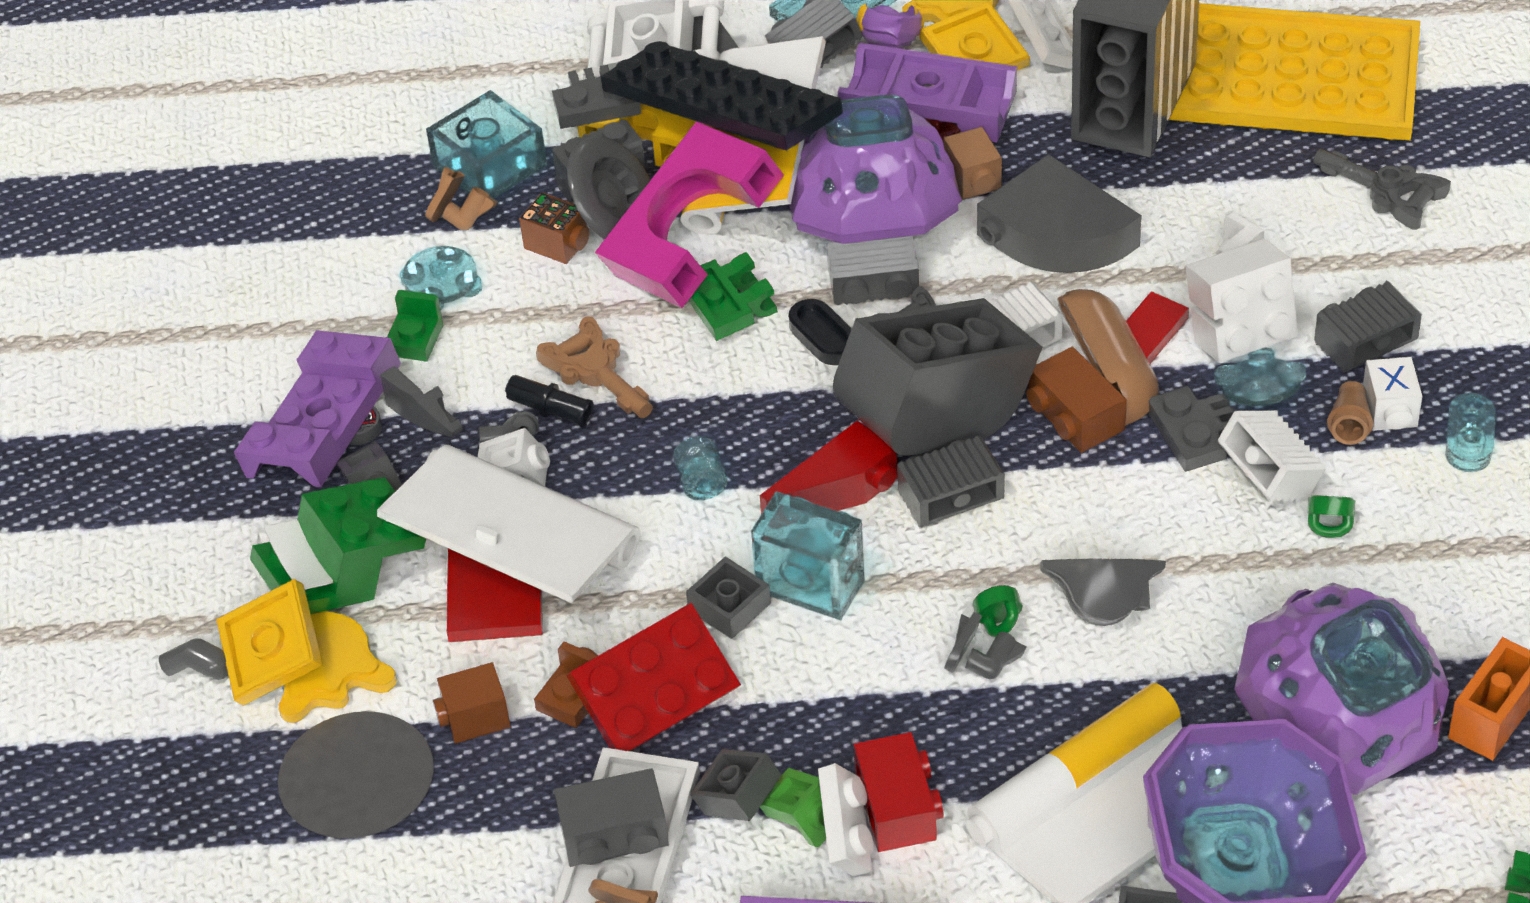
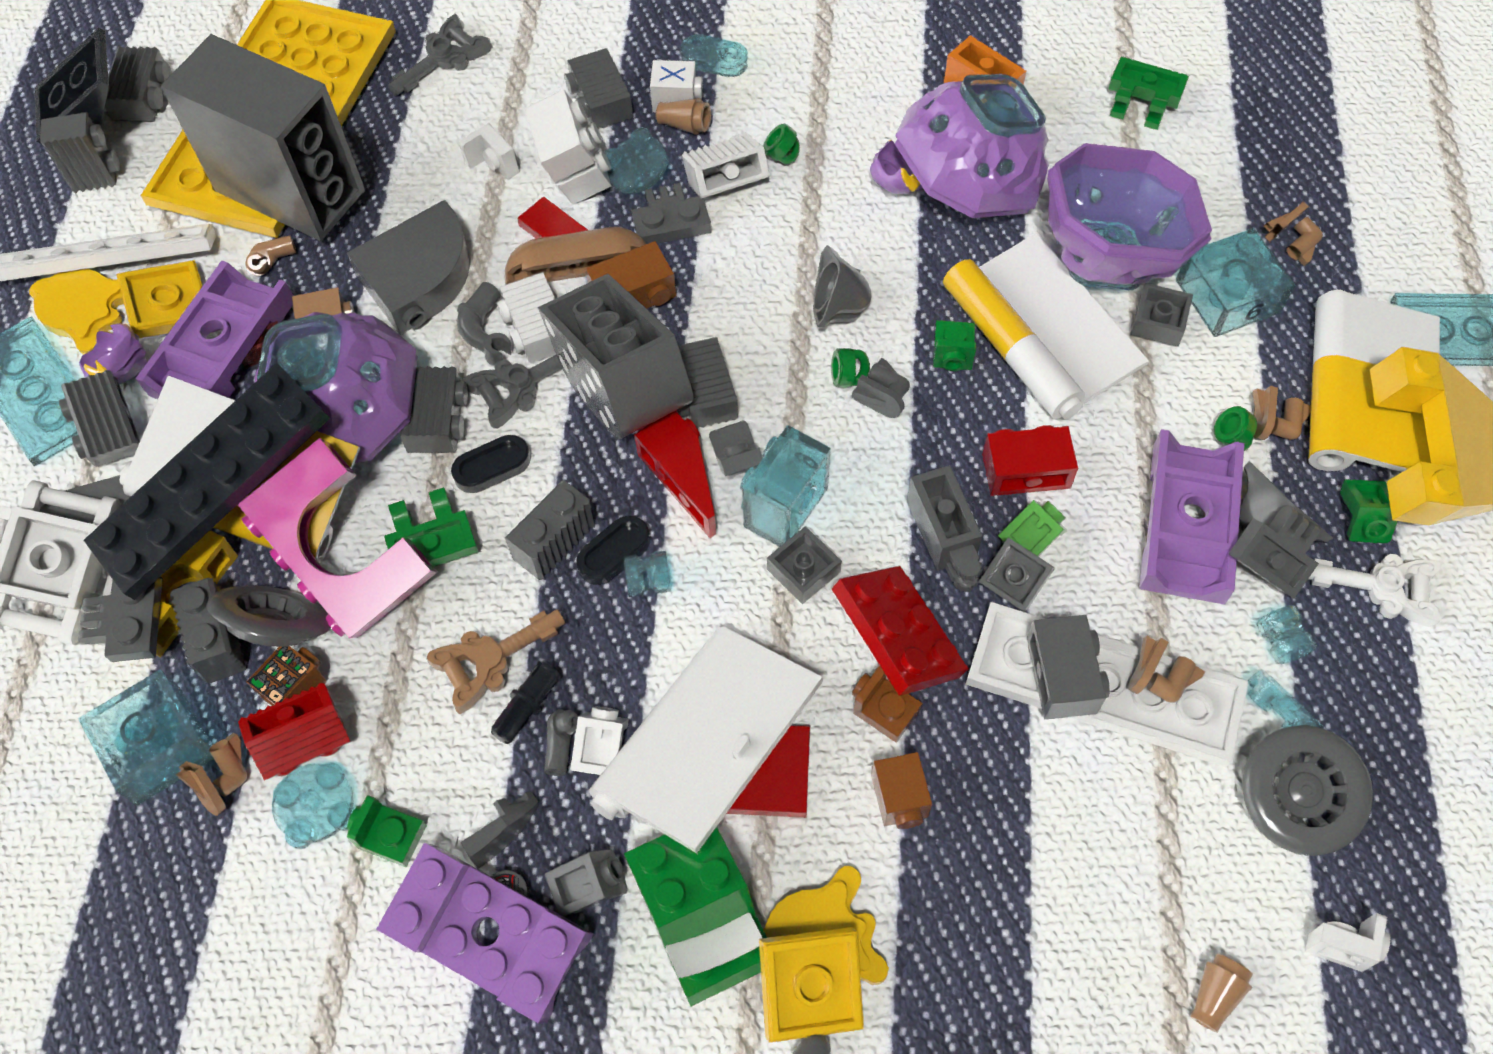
camera: 85 degrees left, 15 degrees up
(355, 774) = (956, 912): flat silver sticker -> none
(498, 238) = (293, 732): none -> red brick
(738, 445) = (604, 555): none -> black tile
(739, 383) = (551, 530): none -> dark grey brick
(786, 708) = (946, 525): none -> dark grey hinge
(844, 820) = (1081, 494): white plate -> none
(875, 511) = (735, 448): none -> dark grey bracket
(999, 278) = (471, 319): none -> dark grey piece
(1049, 106) = (266, 253): none -> medium nougat arm
(1055, 714) = (954, 345): none -> green bracket

